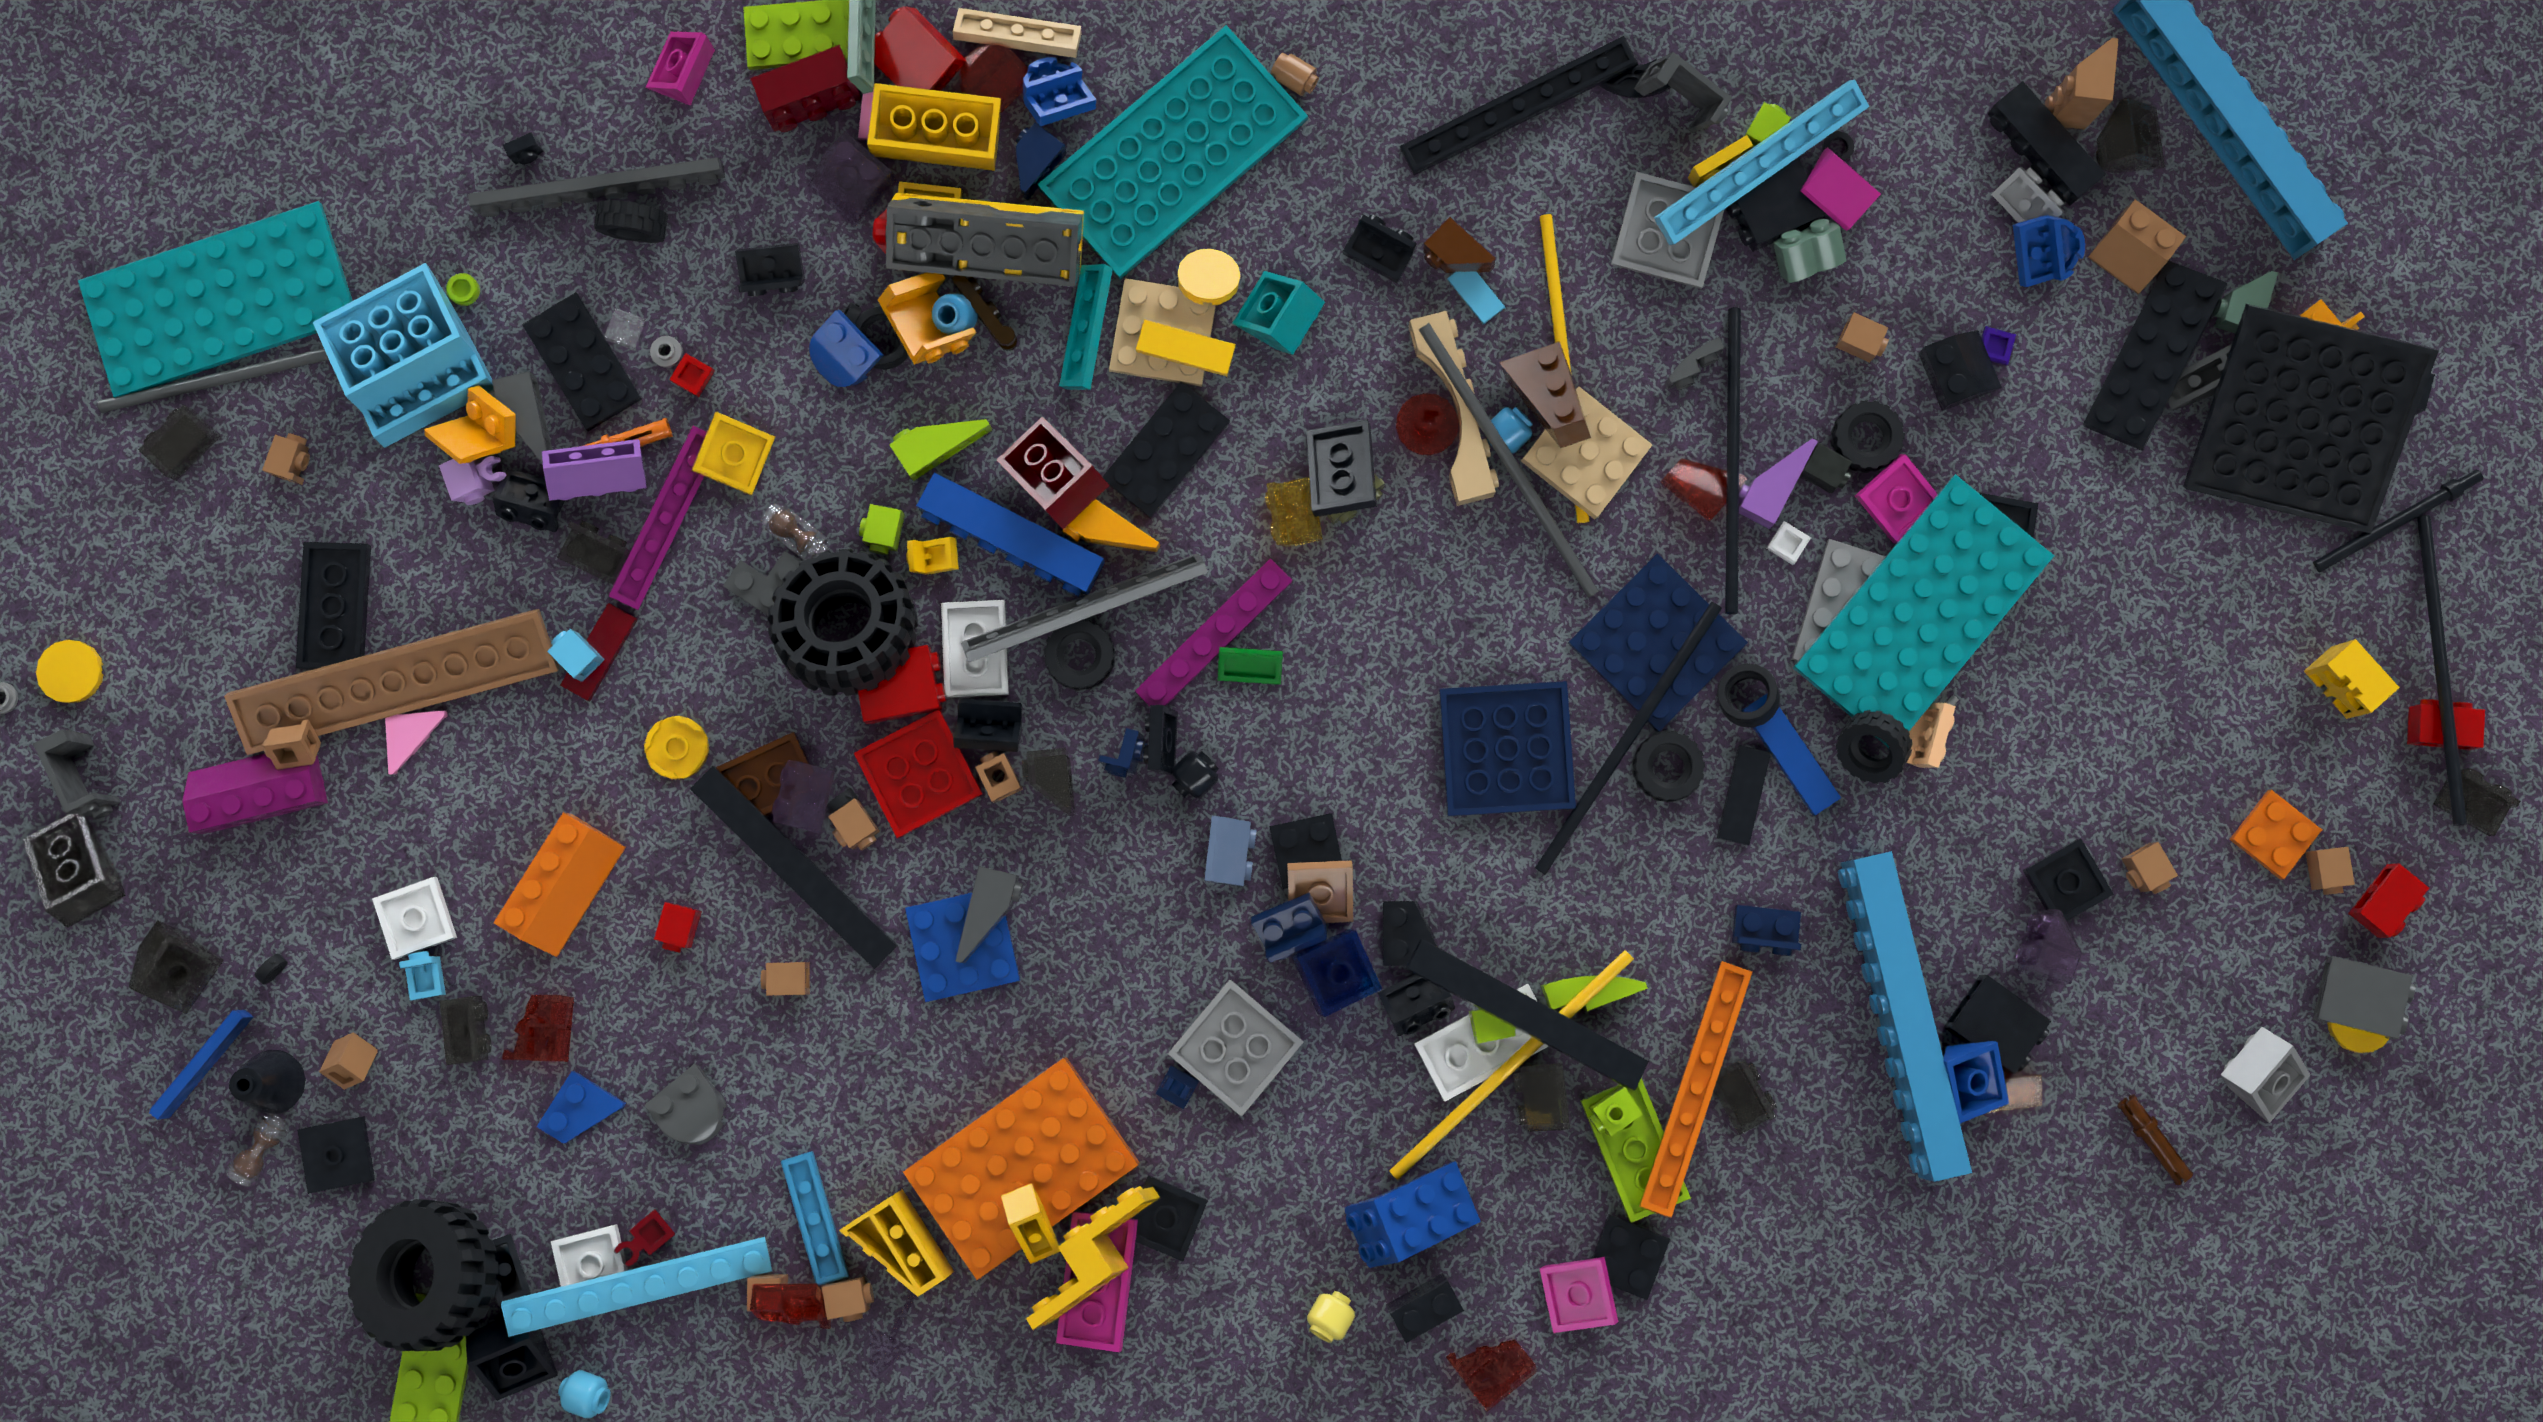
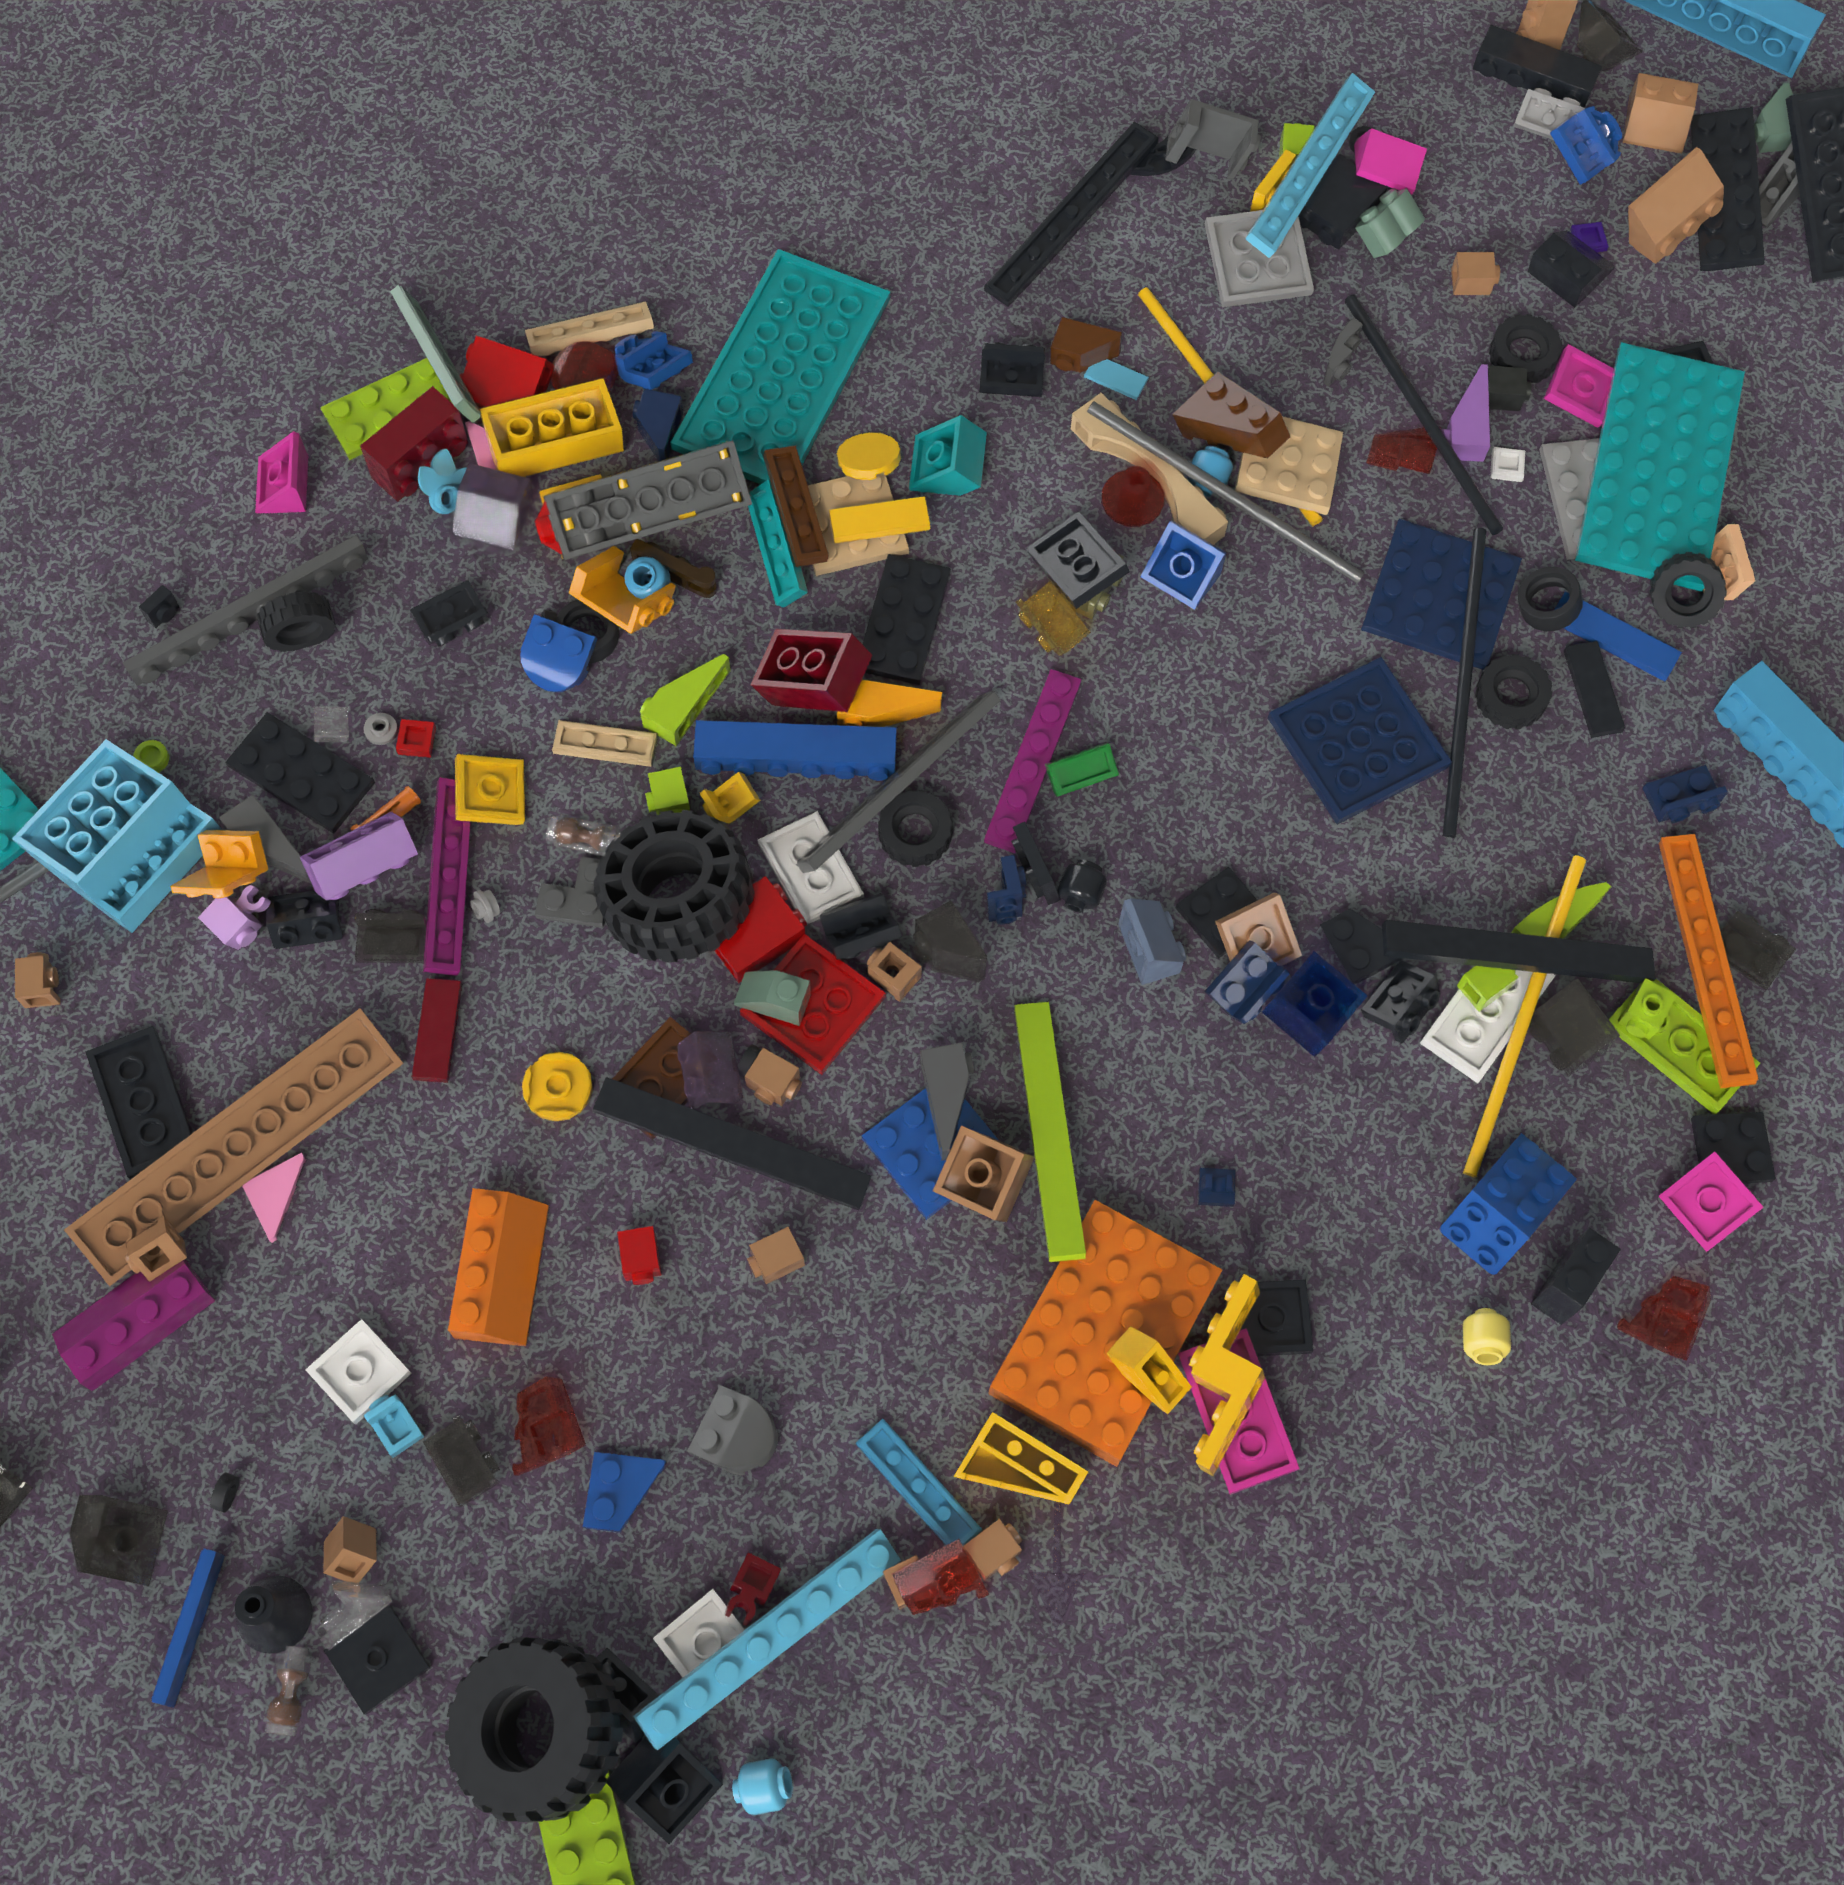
camera: 25 degrees left, 15 degrees down
(334, 1108) = (361, 1604): none -> clear slope
(575, 654) = (416, 1035): medium azure brick -> none
(684, 559) = (485, 905): none -> light grey plate
(818, 132) = (441, 479): none -> medium azure plate
(852, 451) = (604, 743): none -> tan tile
(884, 756) = (774, 995): none -> sand green slope
(985, 992) = (983, 1174): none -> medium nougat slope
(1056, 980) = (1049, 1133): none -> lime tile
(1116, 302) = (795, 506): none -> reddish brown plate
(1235, 1047) = (1254, 1122): light grey plate -> none
(1295, 74) = (860, 264): medium nougat brick -> none
(1435, 514) = (1184, 565): none -> blue slope
(2086, 359) = (1675, 207): none -> medium nougat slope

